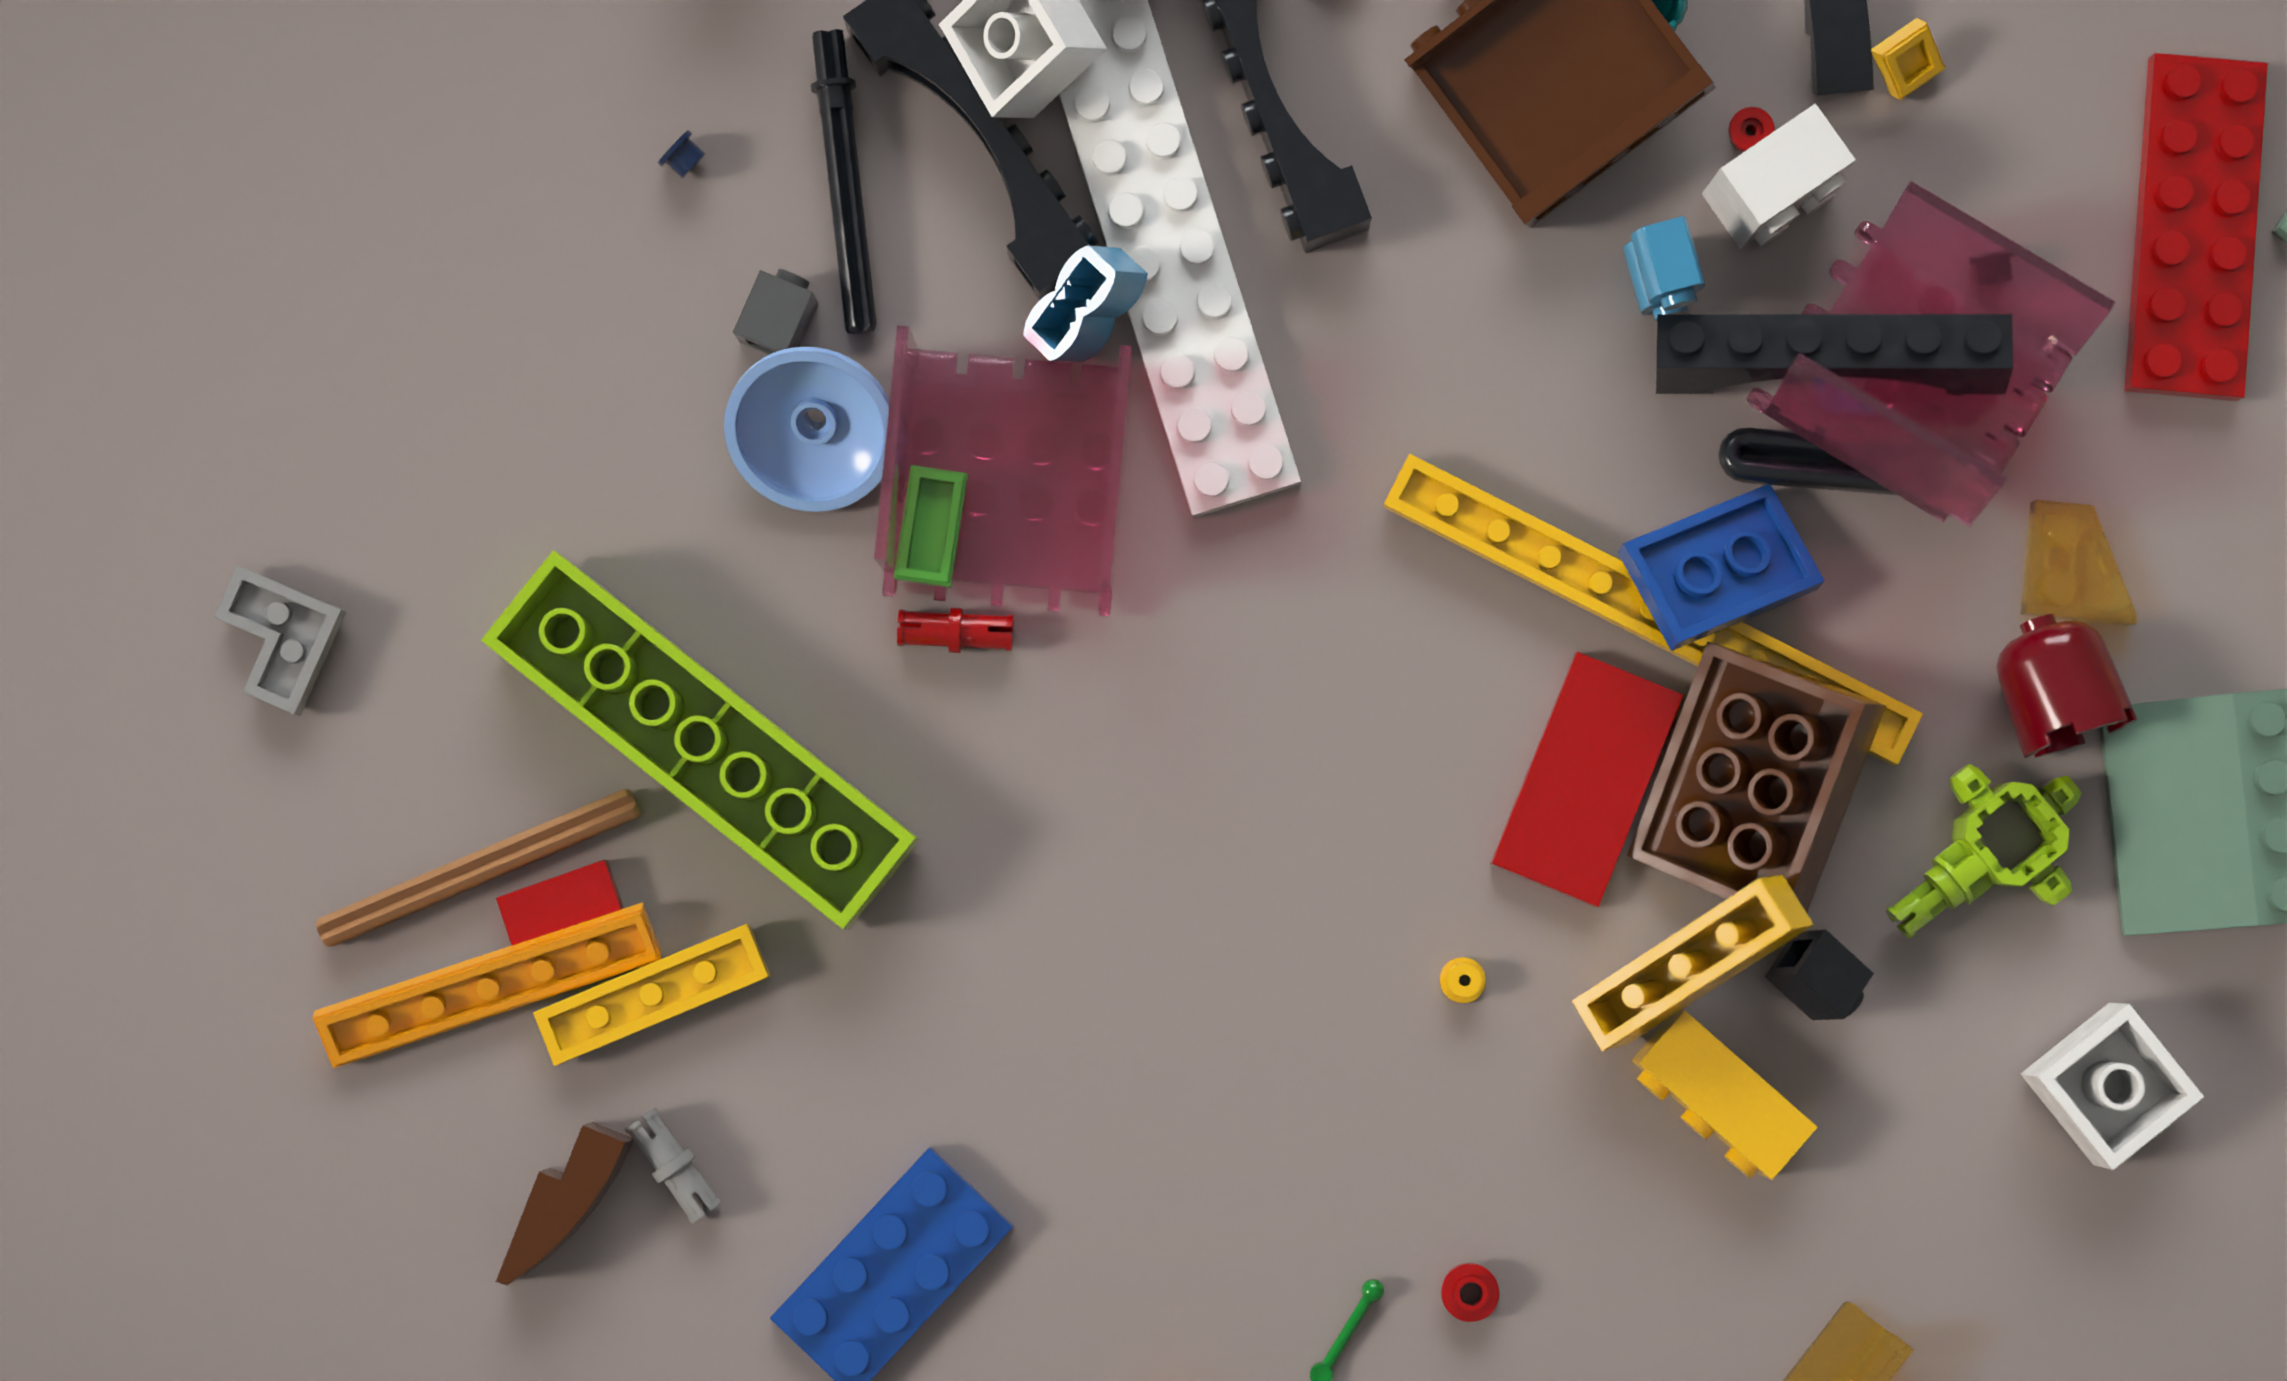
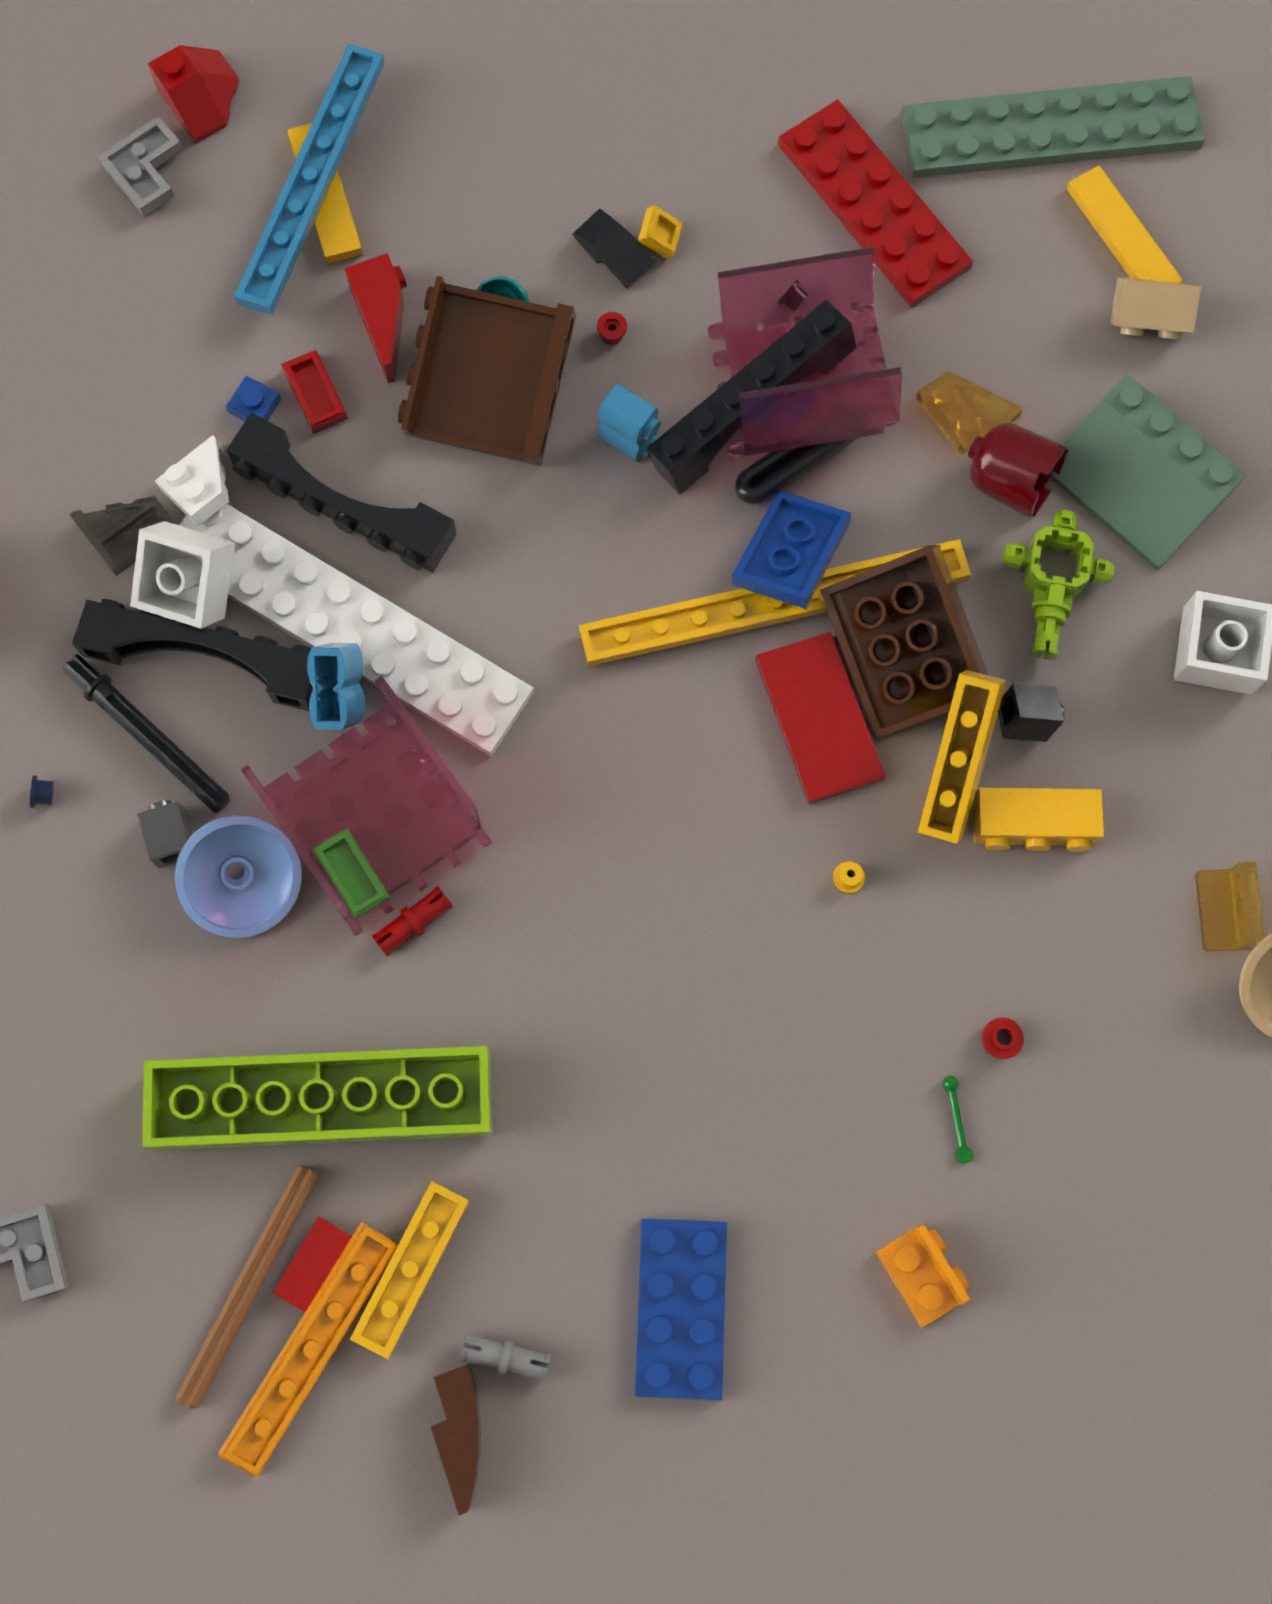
camera: 50 degrees left, 10 degrees down
(1777, 176) = (648, 334): white brick -> none

